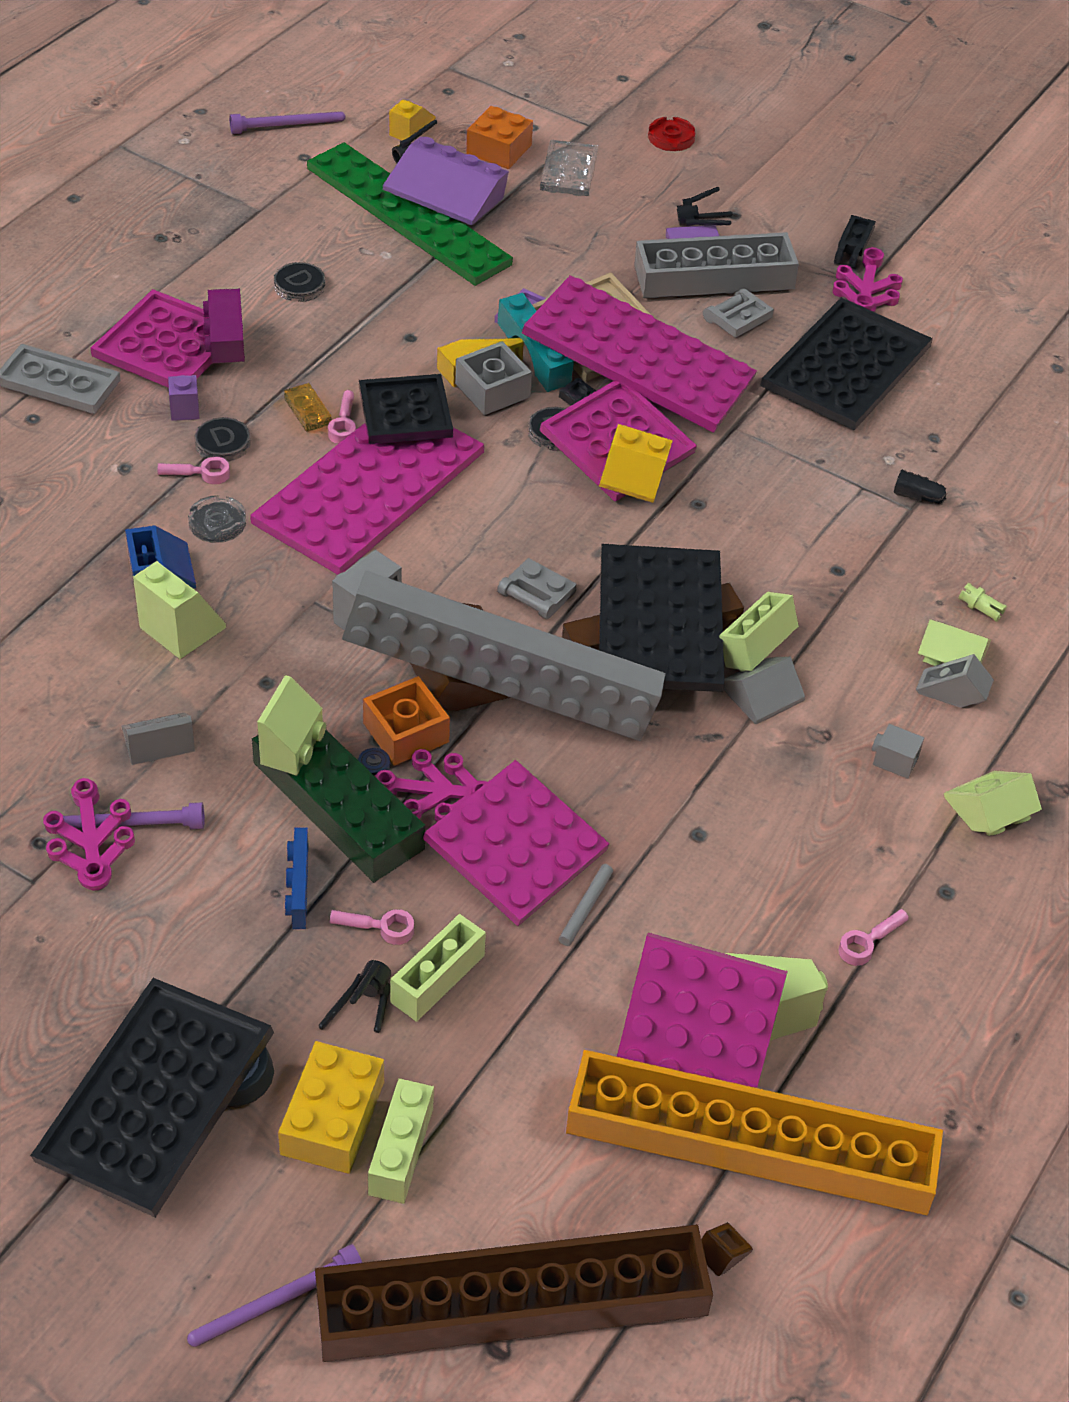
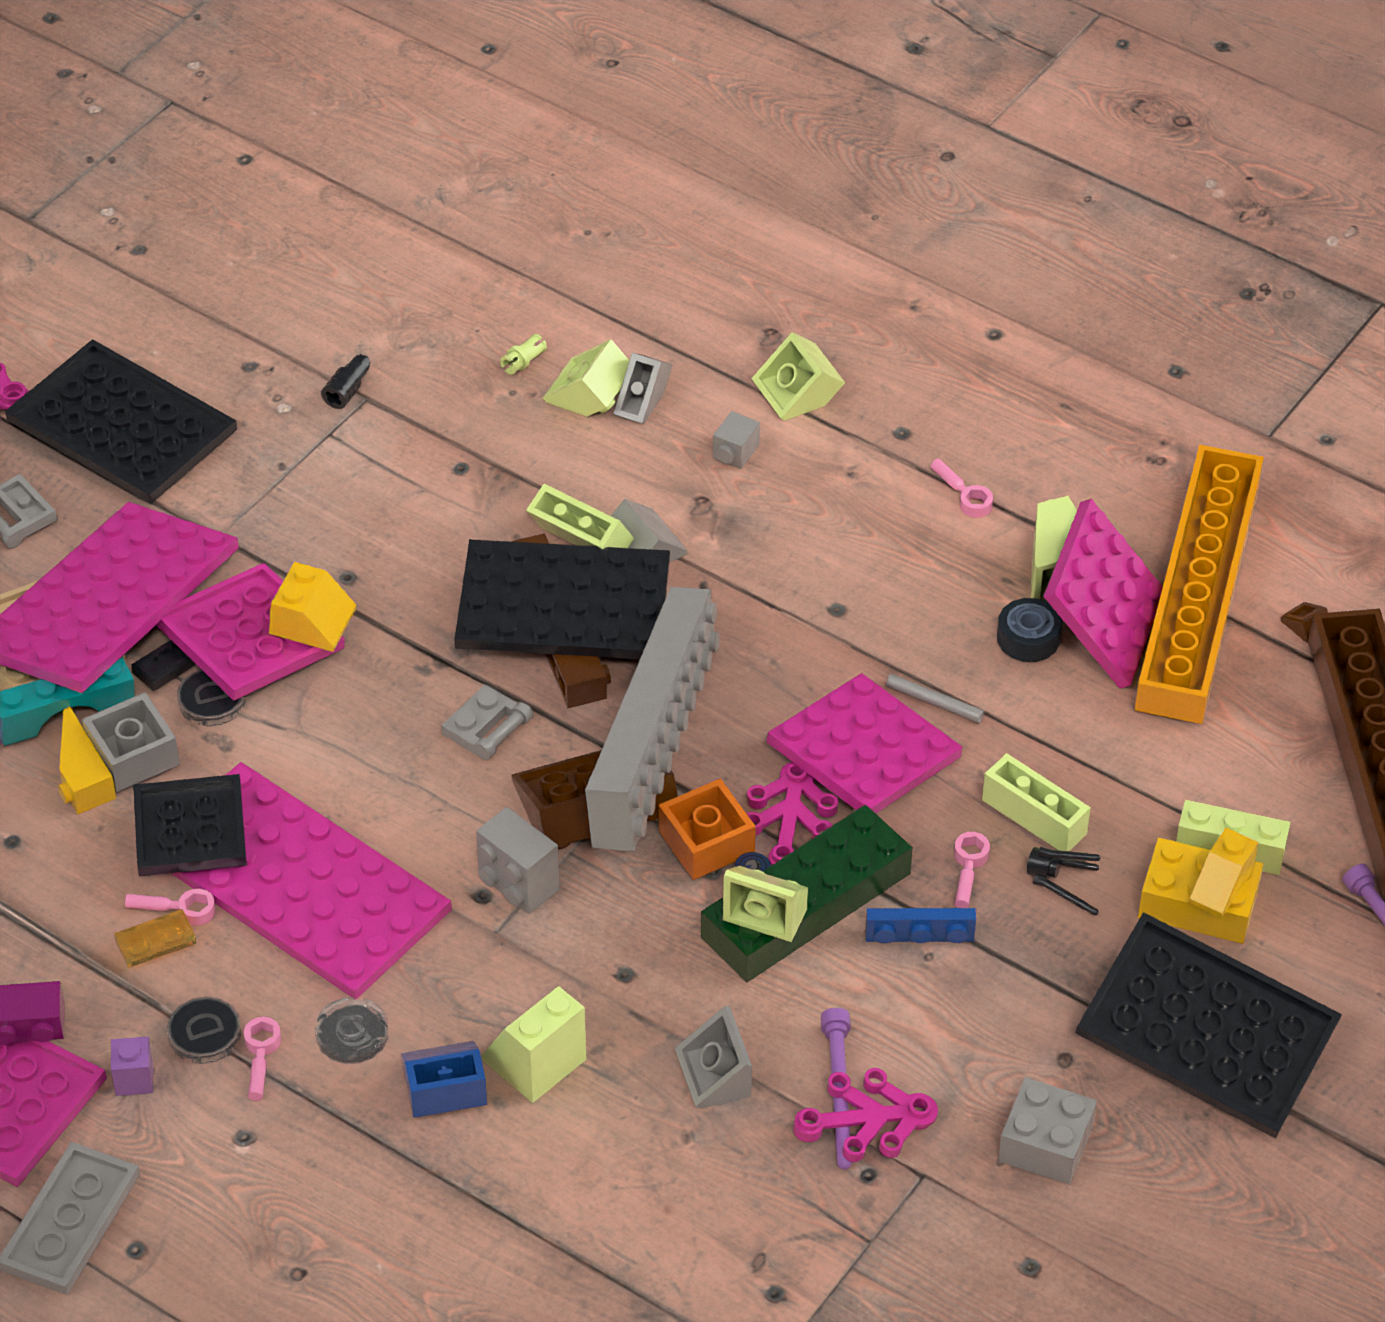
camera: 85 degrees left, 0 degrees up
(53, 963) = (1047, 1130): none -> light grey brick
(317, 1098) = (1224, 872): none -> yellow slope

